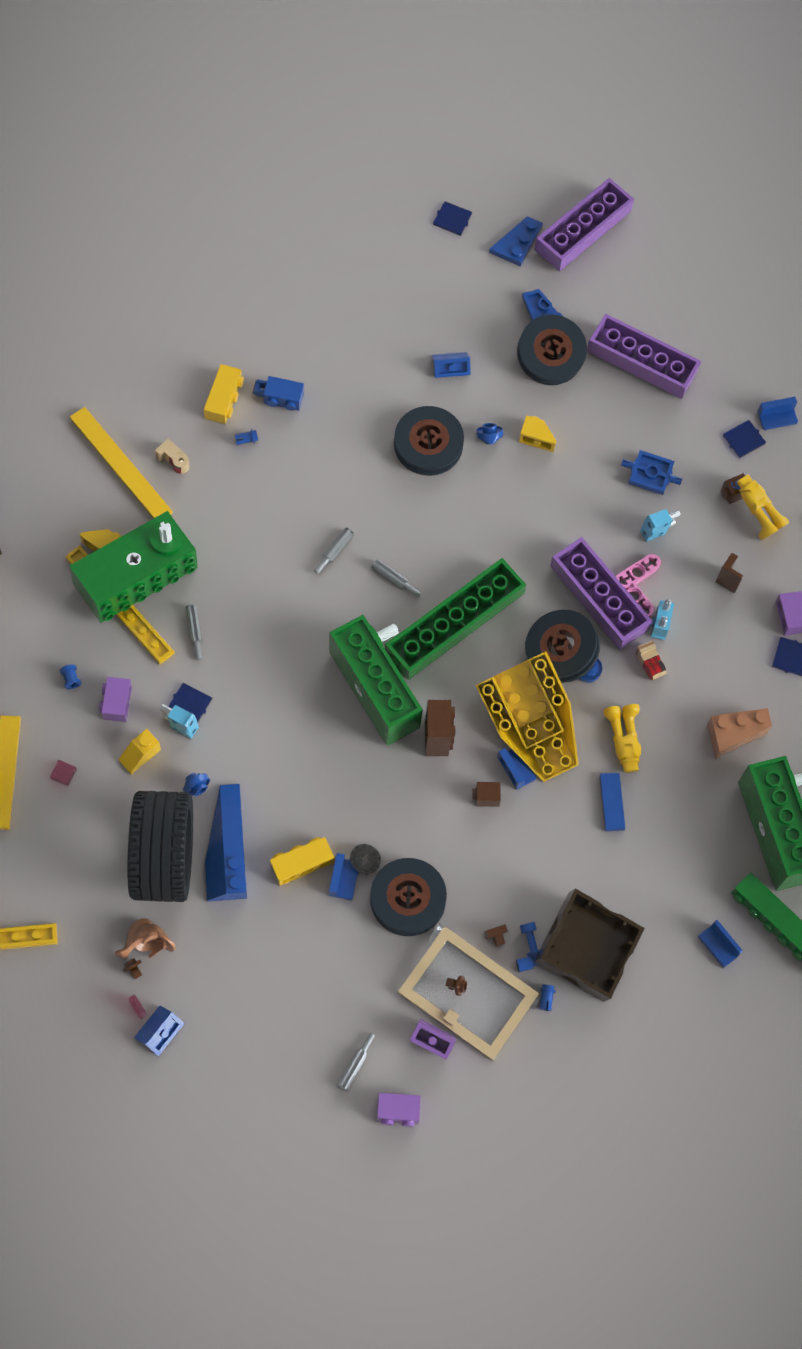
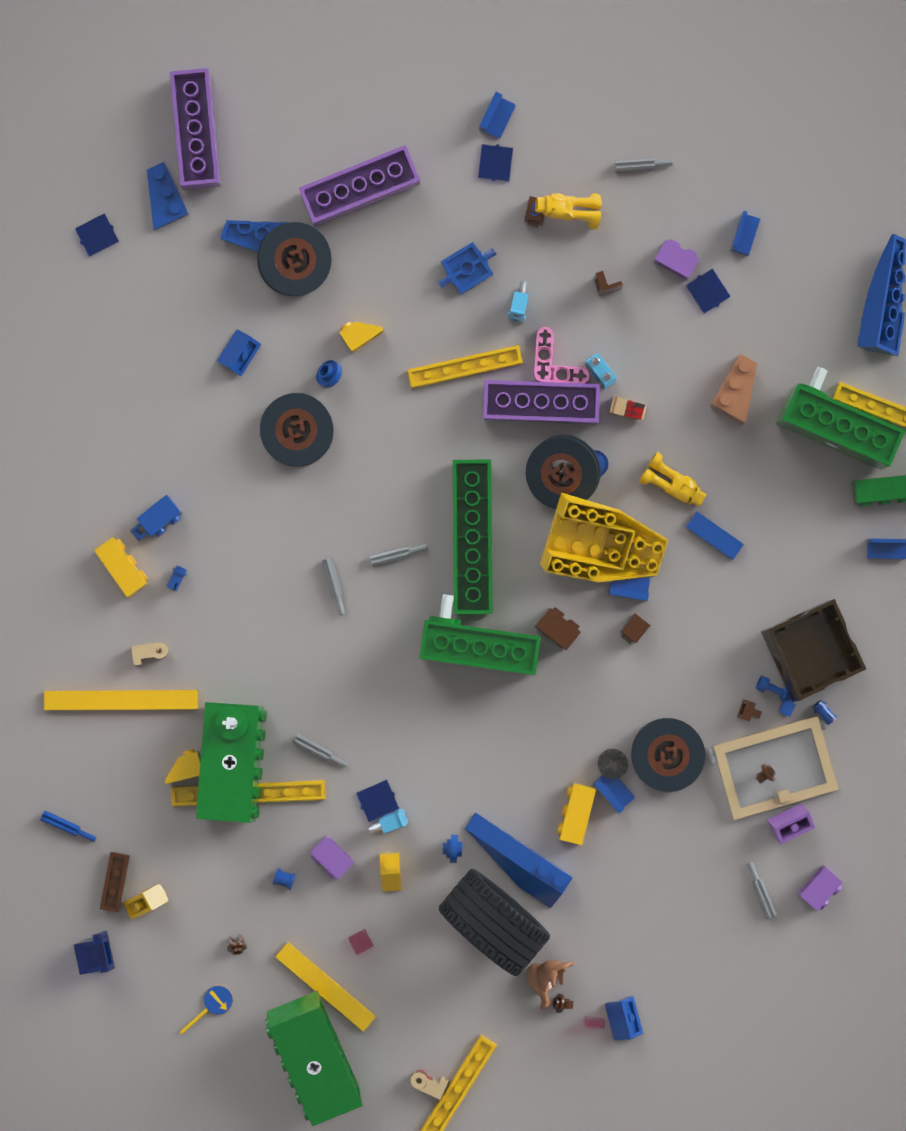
camera: 45 degrees left, 20 degrees up
(578, 524) = (465, 366): none -> yellow tile

